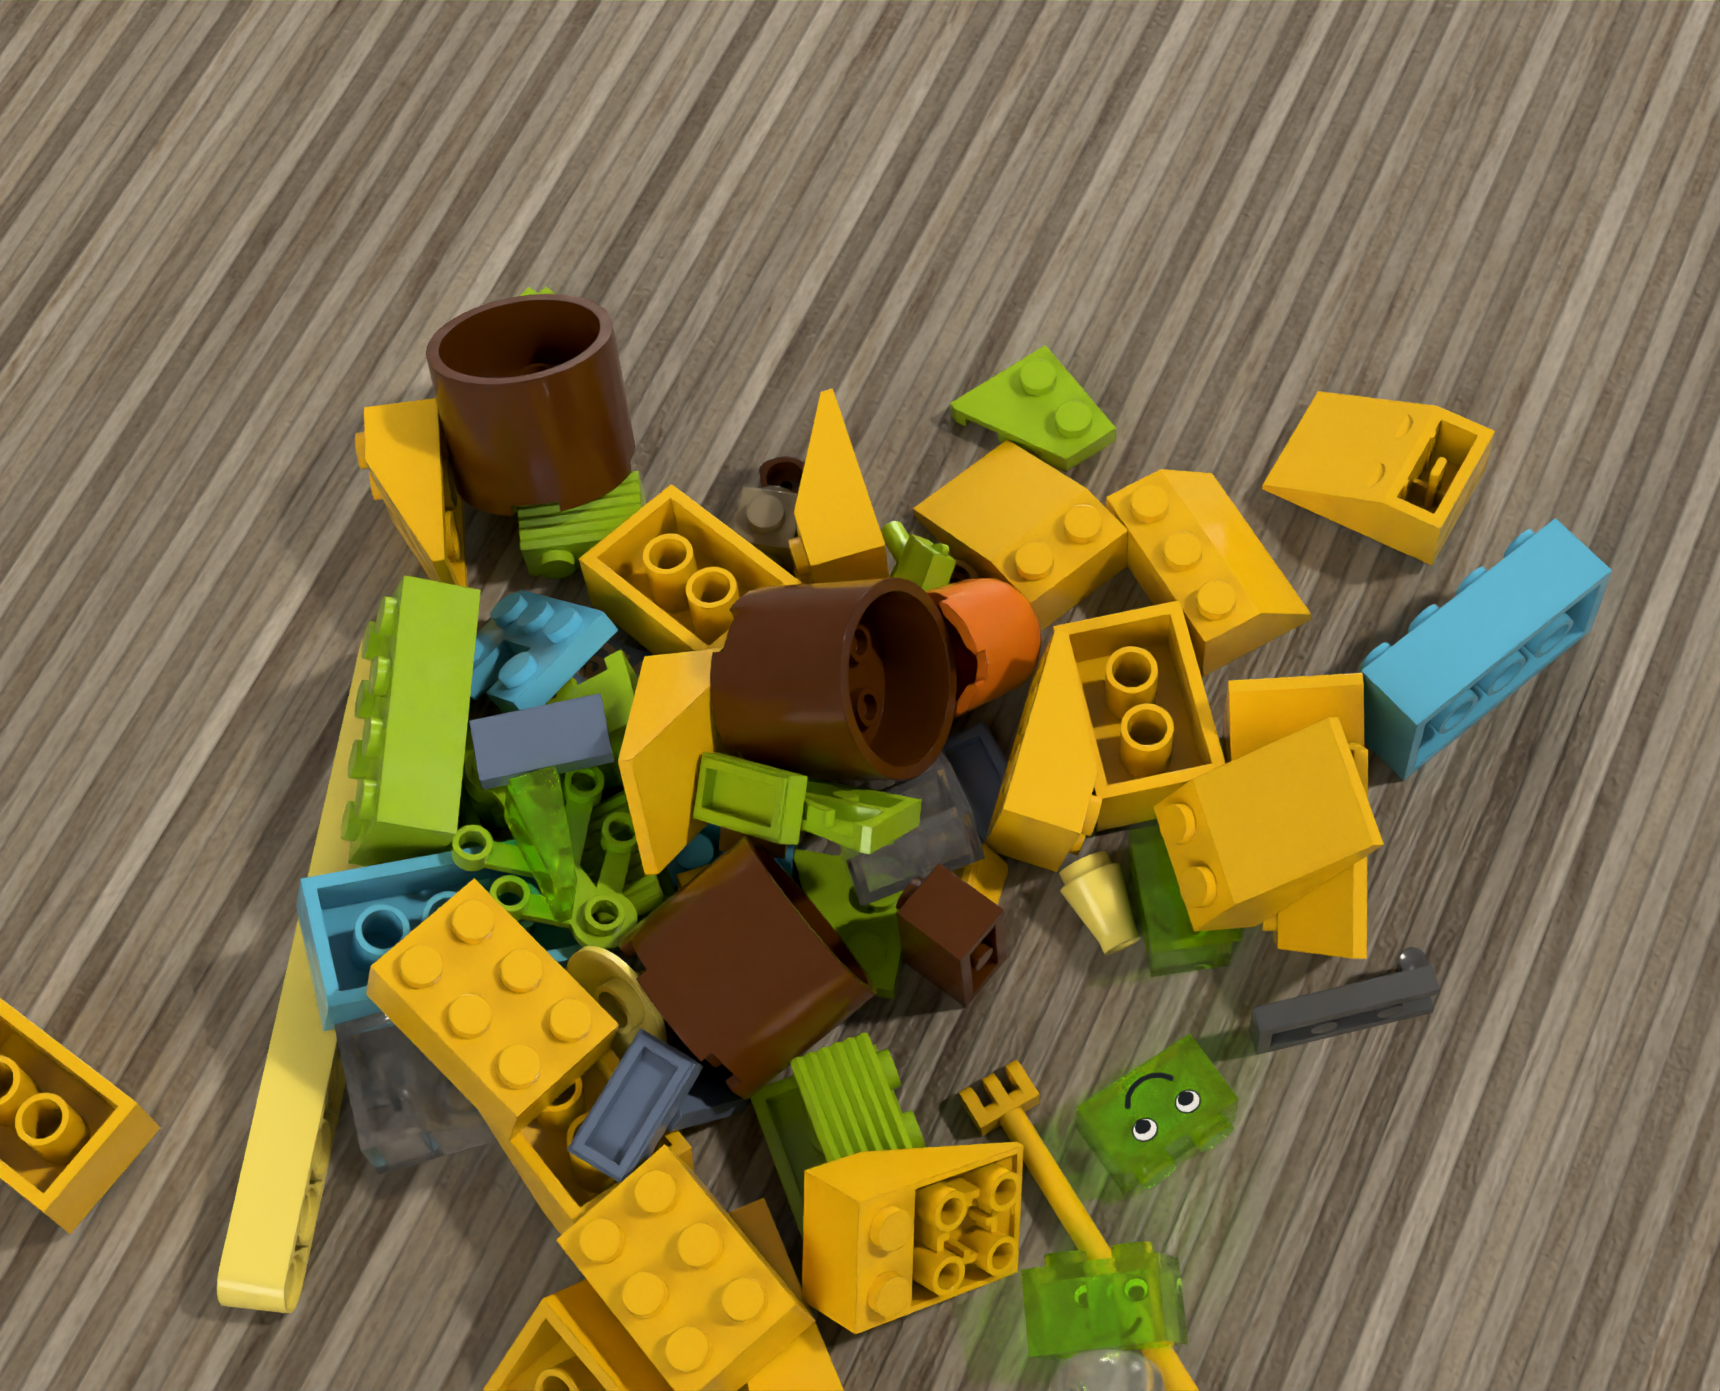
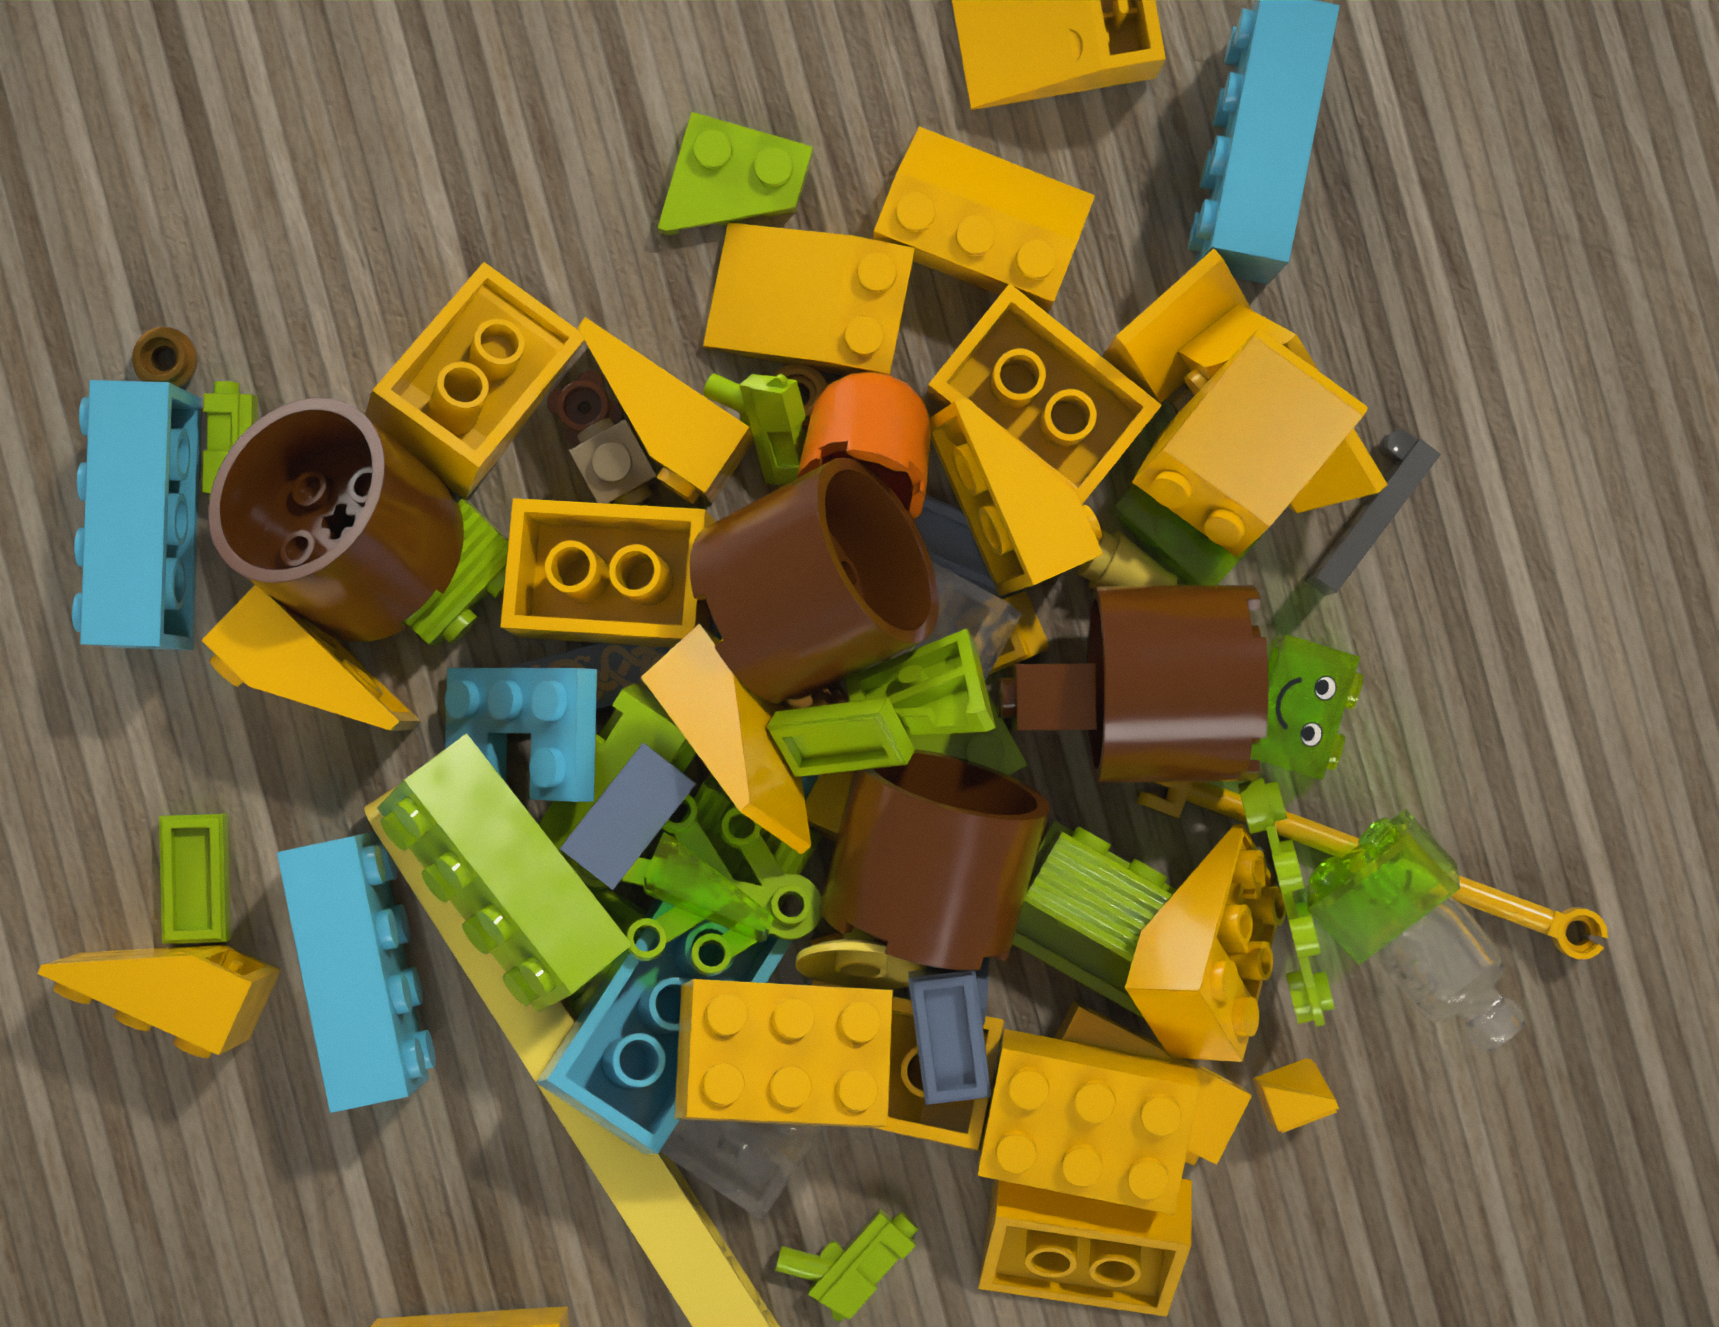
camera: 55 degrees left, 25 degrees up
(121, 650) = (194, 992): none -> yellow slope
(209, 602) = (195, 878): none -> lime tile
(250, 731) = (356, 970): none -> medium azure brick
(377, 333) = (138, 515): none -> medium azure brick
(393, 1286) = (850, 1275): none -> lime piece
(525, 238) = (152, 344): none -> pearl gold plate
(717, 406) = (473, 378): none -> yellow slope
(991, 1287) = (1308, 991): none -> lime plant
(1056, 985) = (1177, 683): none -> reddish brown brick

